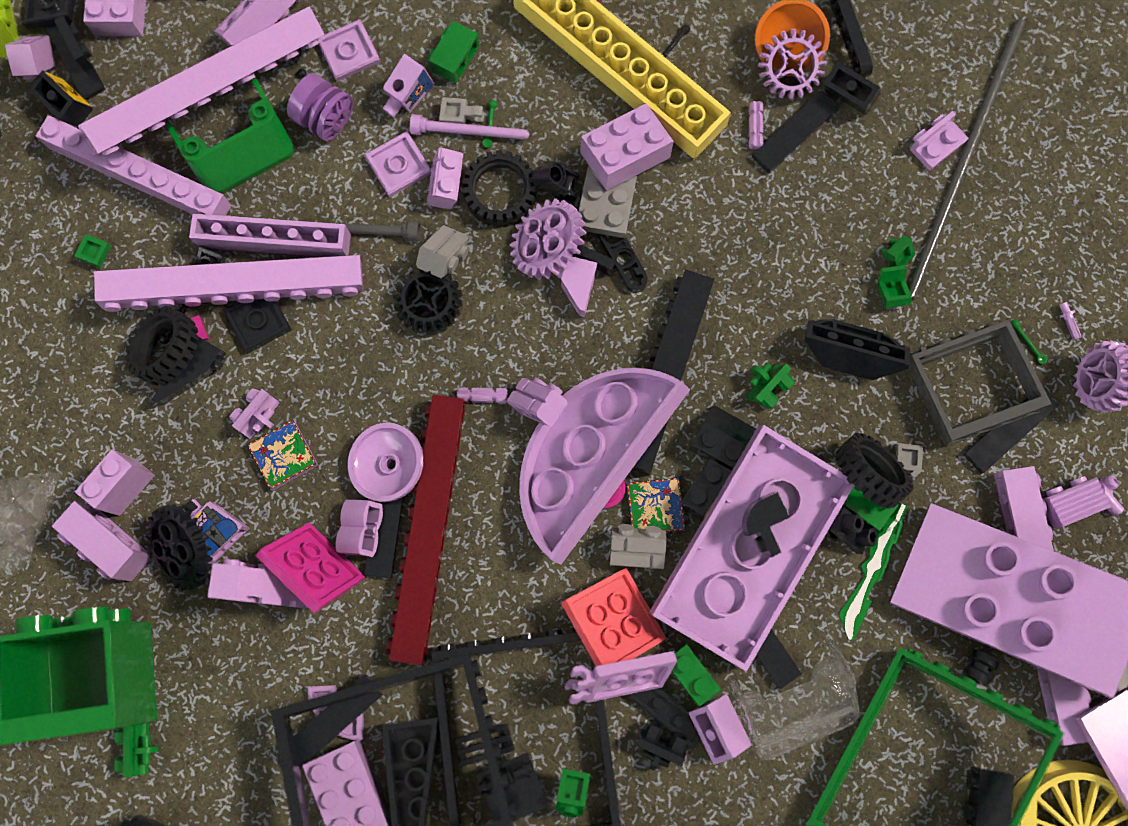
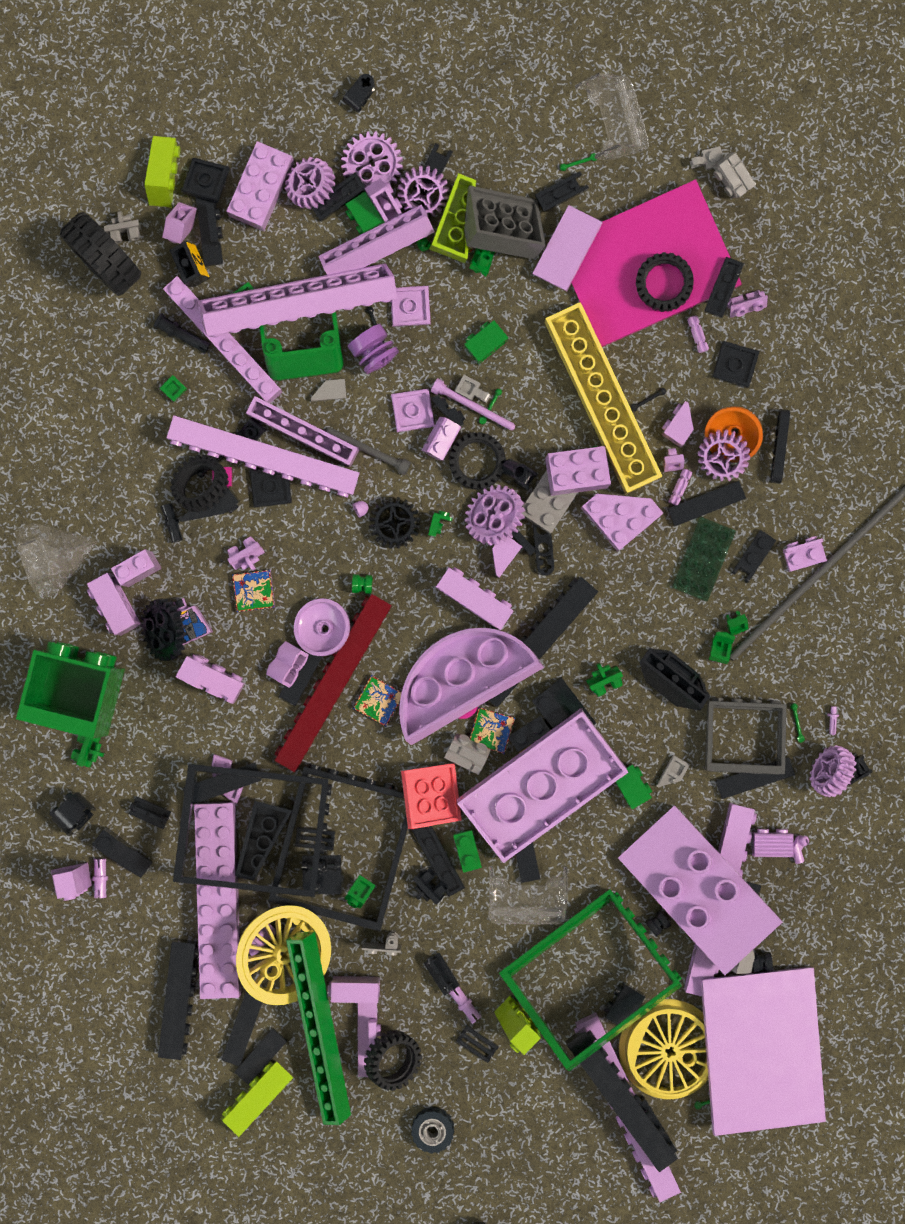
camera: 20 degrees right, 10 degrees up
(70, 183) = (174, 330): none -> black pin
(147, 412) = (171, 523): none -> black pin
(248, 802) = (149, 812): none -> black hinge
(288, 180) = (330, 391): none -> light grey tile
(310, 567) = (246, 679): dark pink plate -> none
(379, 300) = (360, 508): none -> lavender hinge
(406, 86) = (447, 353): lavender torso -> none
(416, 390) = (362, 584): none -> green wheel
(432, 143) = (453, 415): none -> black slope
(442, 251) = (418, 494): light grey brick -> none
(481, 284) = (436, 527): none -> green bracket
(483, 395) = (405, 605): lavender axle -> none
(495, 528) = (378, 701): none -> tile
(538, 401) = (440, 628): lavender brick -> none
(563, 347) = (475, 599): none -> lavender brick
(621, 677) = (419, 834): lavender tile -> none
(700, 183) = (621, 516): none -> lavender brick
(720, 729) = (471, 891): lavender brick -> none
(725, 56) = (680, 426): none -> lavender slope
(735, 97) = (673, 461): none -> lavender tile
(760, 517) = (552, 770): black brick -> none
(822, 196) = (703, 559): none -> clear green tile
(851, 88) = (759, 491): black brick -> none
(852, 531) = (614, 802): black hips -> none
(873, 568) = (618, 832): green sword -> none
(874, 470) = (657, 767): black tyre -> none
(880, 166) = (754, 554): none -> black hinge

